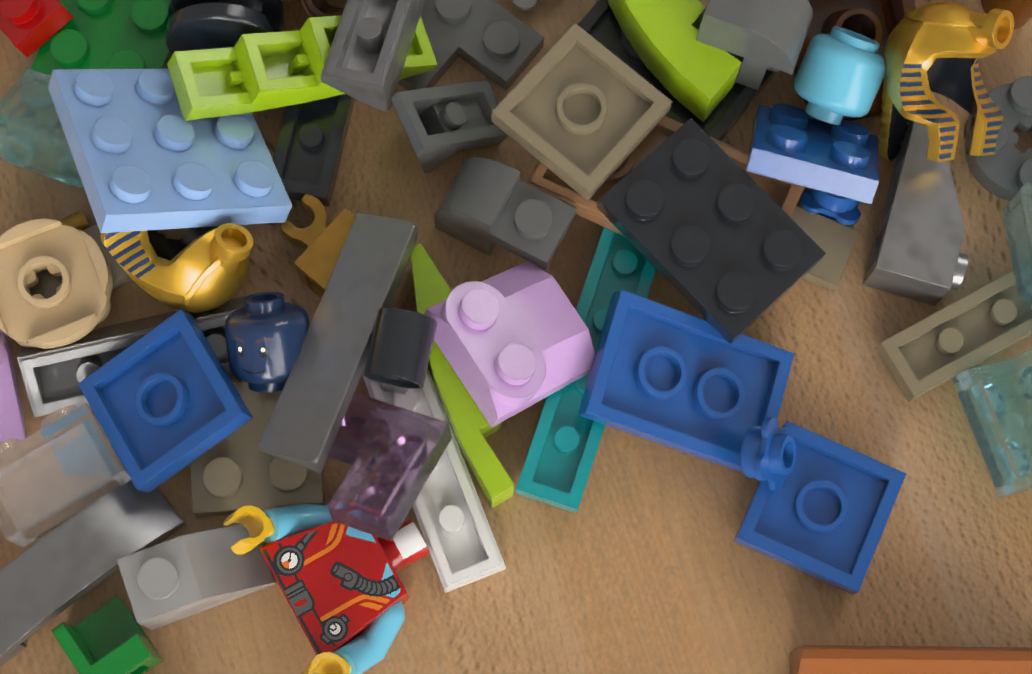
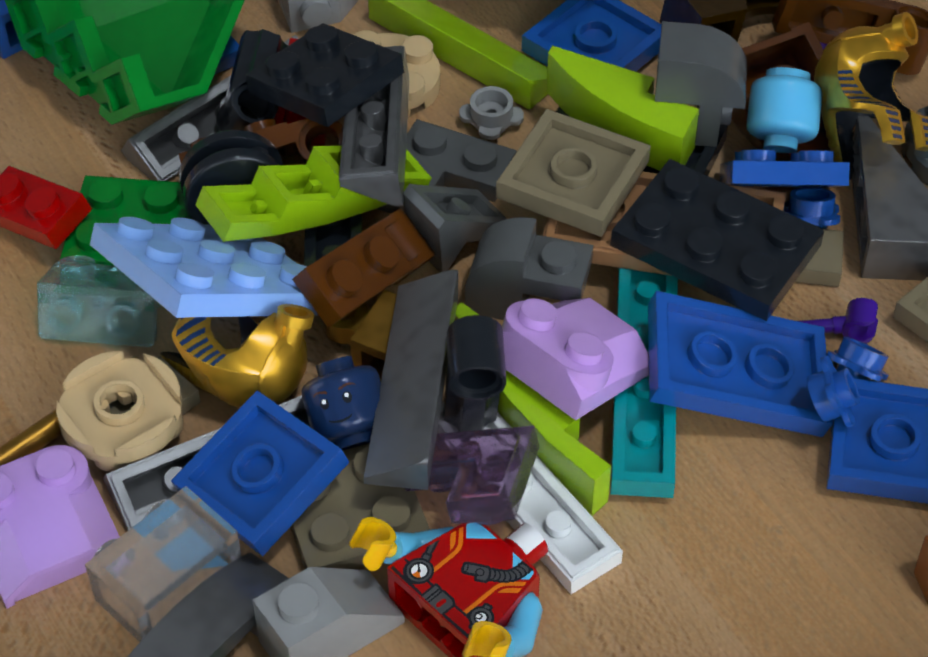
camera: 10 degrees left, 25 degrees down
(331, 176) = (364, 267): none -> reddish brown plate
(817, 403) = (860, 359): none -> blue plate
(834, 351) = (858, 322): none -> dark purple hand

